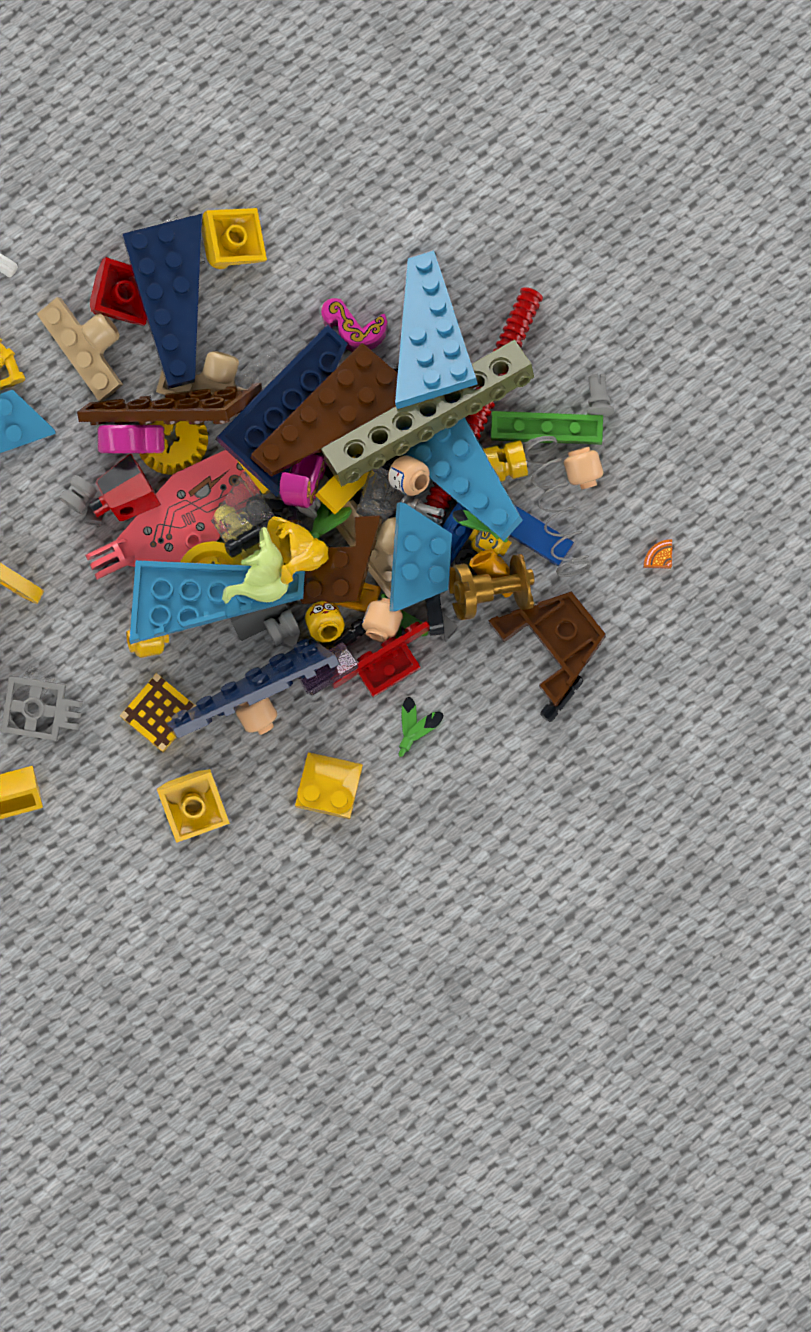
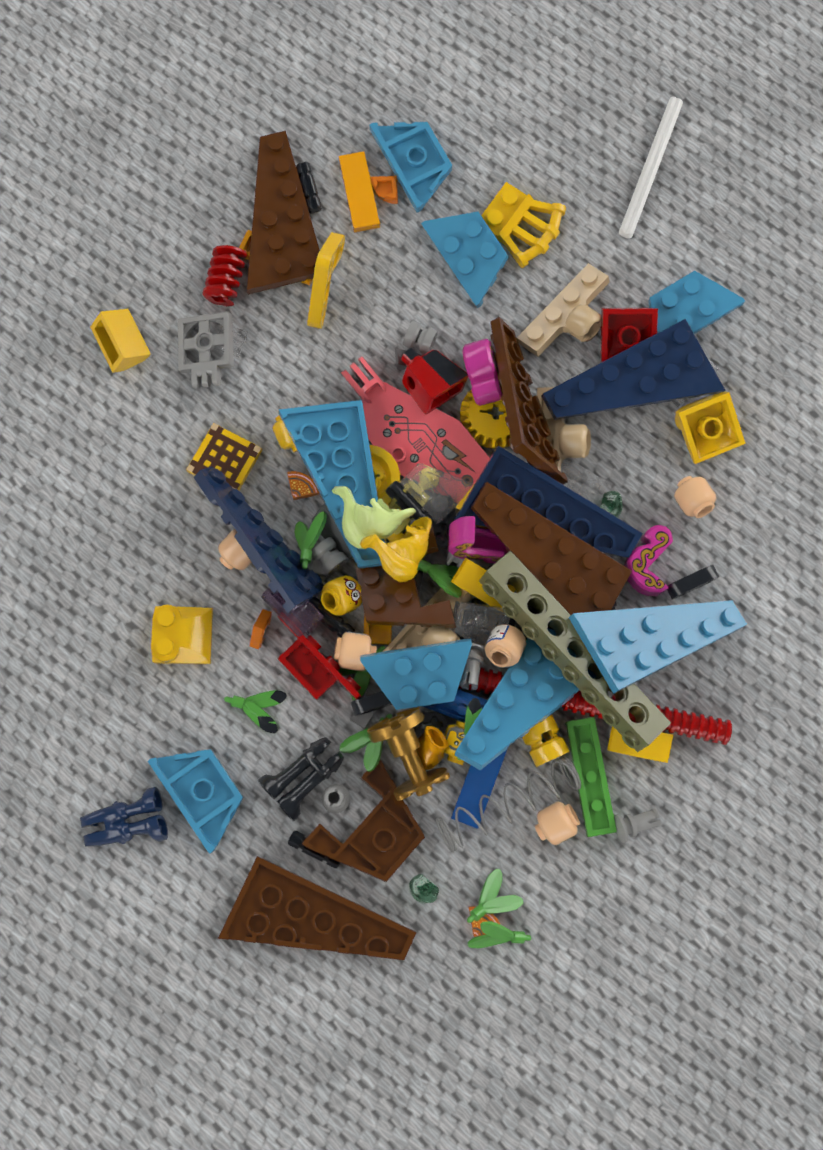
camera: 75 degrees right, 0 degrees up
(100, 223) = (693, 299): none -> dark azure wing
(192, 805) = (137, 507): yellow slope -> none
(203, 641) = (301, 485): none -> orange tile
(262, 642) = (307, 537): none -> bright green piece
(288, 348) = (612, 503): none -> clear green piece
(299, 267) = (695, 496): none -> light nougat head
(339, 707) = (259, 627): none -> orange tile
(382, 290) = (692, 582): none -> black beam
(466, 631) = (358, 741): none -> bright green piece
(485, 793) = (201, 792): none -> dark azure wing
(494, 719) = (291, 801): none -> black piece
(501, 878) = (119, 830): none -> dark blue piece
(518, 668) = (335, 798): none -> light grey pin
(538, 359) = (657, 750): none -> yellow slope
(616, 725) = (298, 913): none -> reddish brown wing
(619, 604) = (423, 889): none -> clear green piece
(643, 545) = (489, 903): none -> bright green piece
(674, 544) = (497, 934): none -> bright green piece

